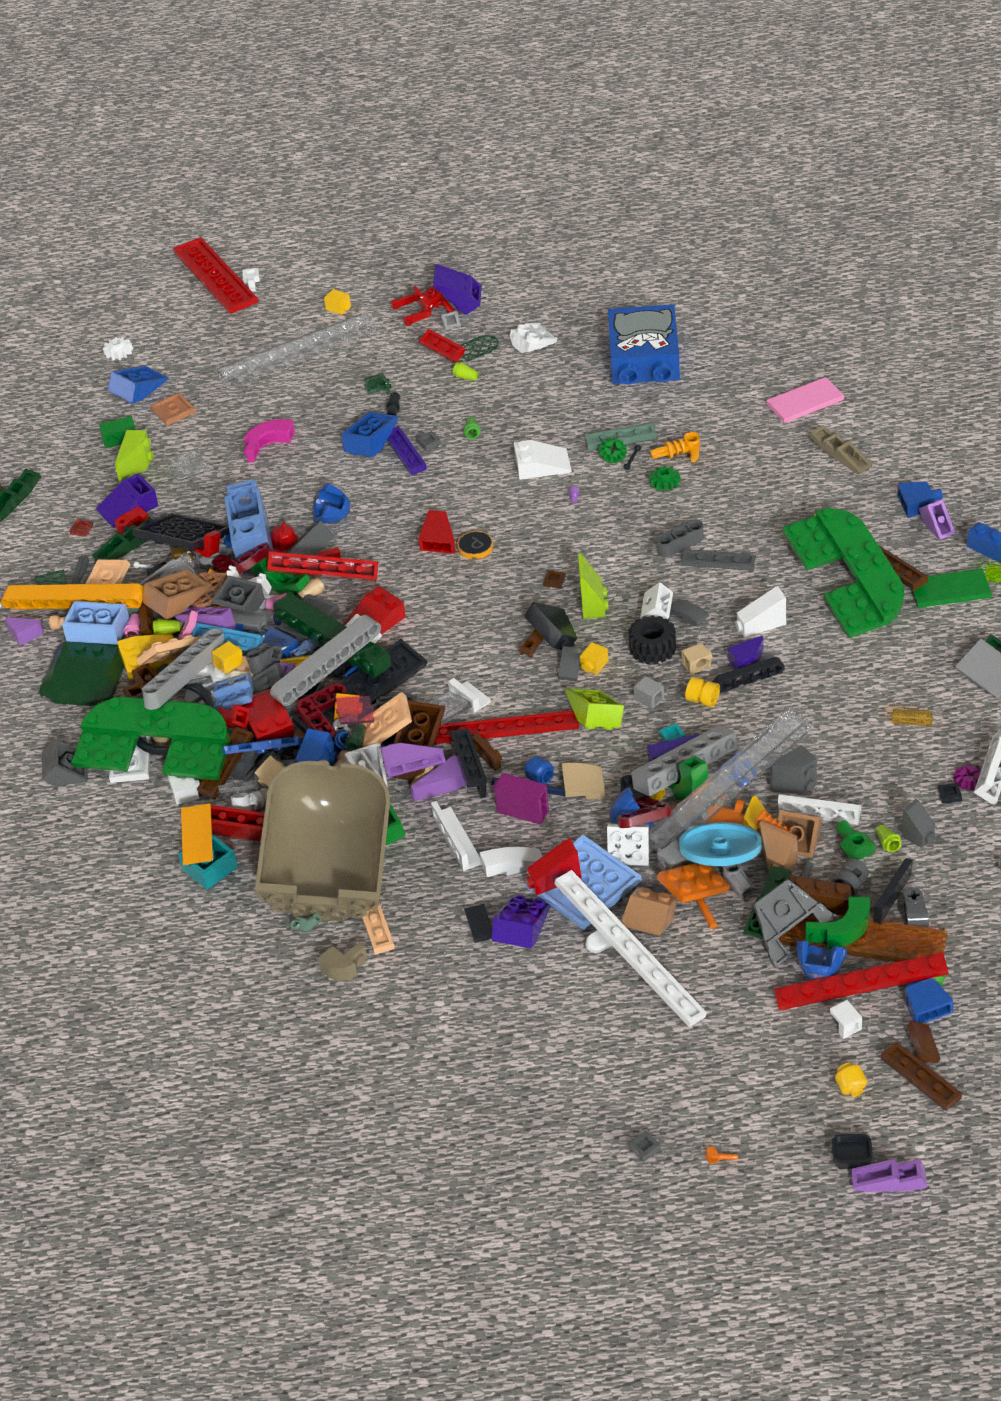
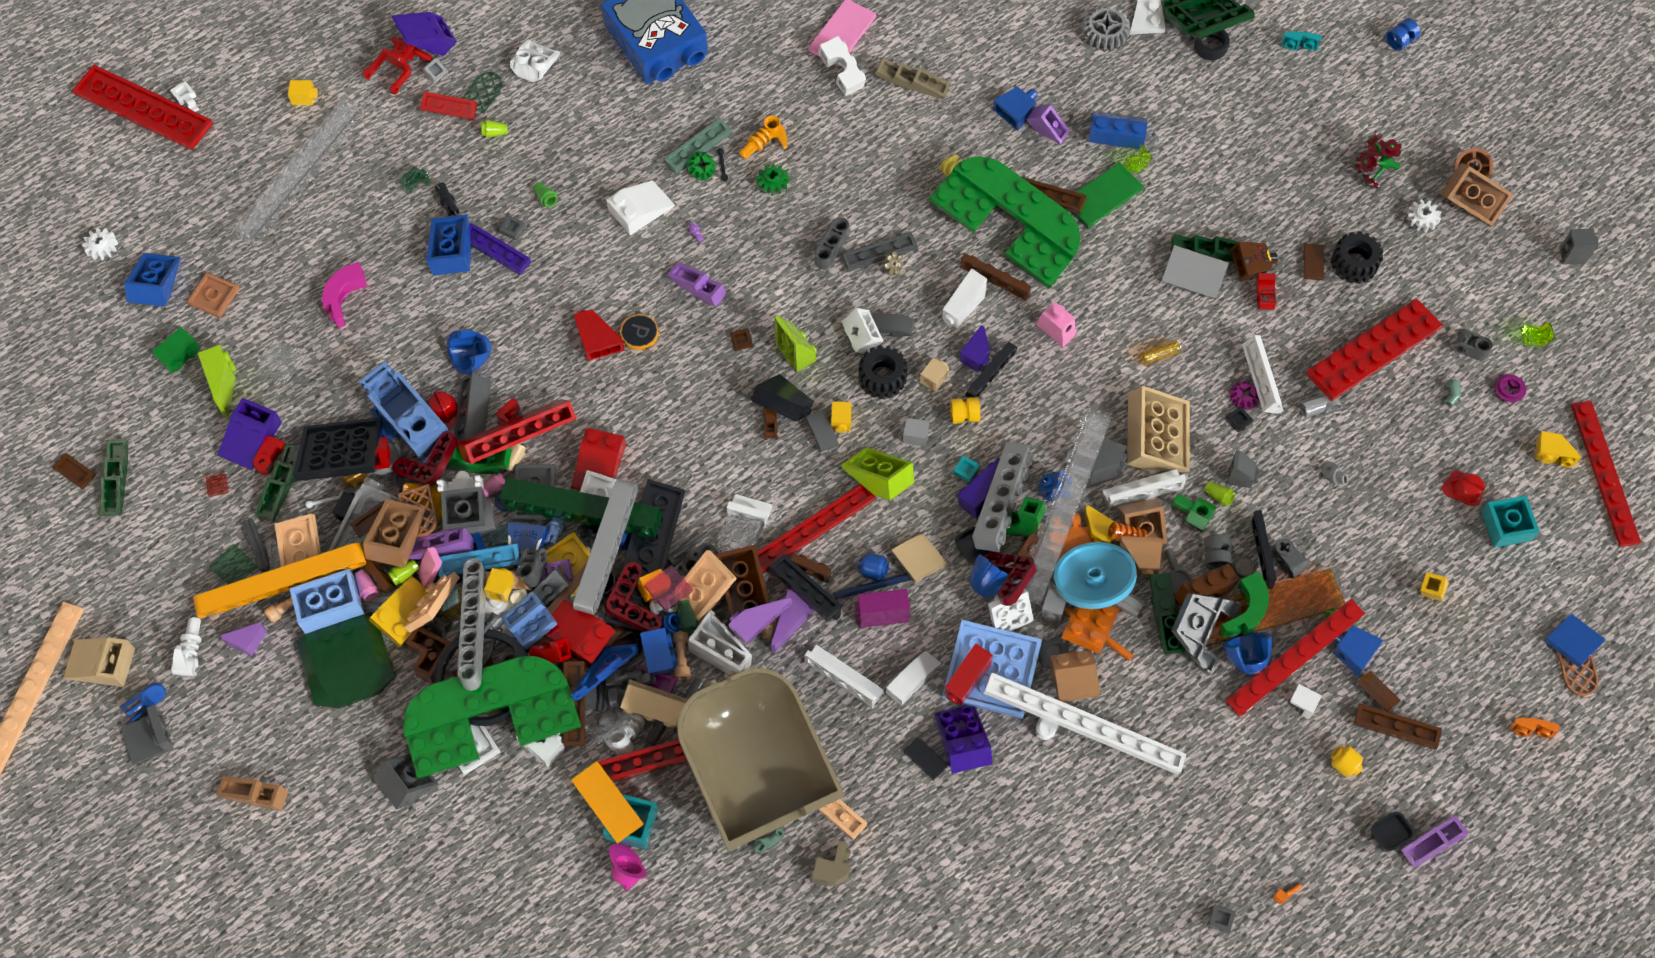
camera: 35 degrees left, 20 degrees up
(181, 890) = (626, 866): none -> dark pink piece
(547, 528) = (697, 283): none -> medium lavender slope
(721, 570) = (892, 263): none -> dark tan plant
(782, 408) = (836, 53): none -> white arch
(804, 610) = (1001, 279): none -> reddish brown plate
(830, 653) = (1057, 324): none -> bright pink torso
(866, 771) = (1158, 431): none -> tan slope

